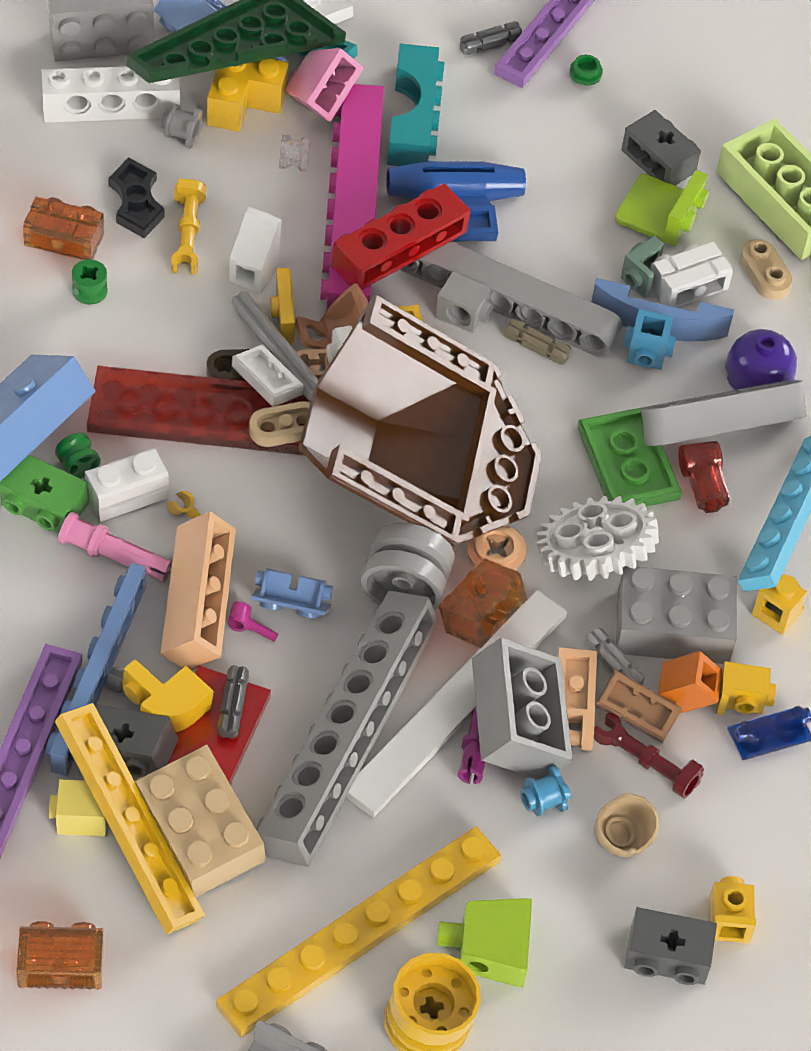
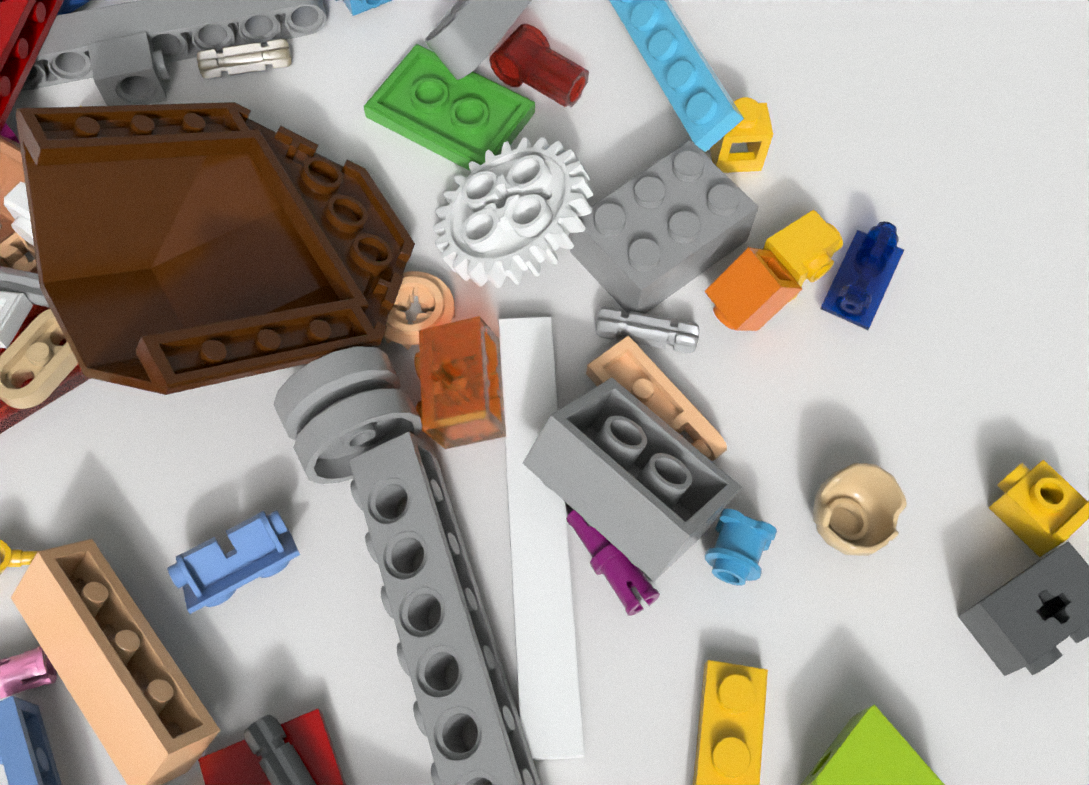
camera: 40 degrees left, 10 degrees up
(240, 620) = (197, 645): dark pink hand -> none
(638, 706) = (725, 360): medium nougat plate -> none
(683, 780) = (846, 400): dark red piece -> none

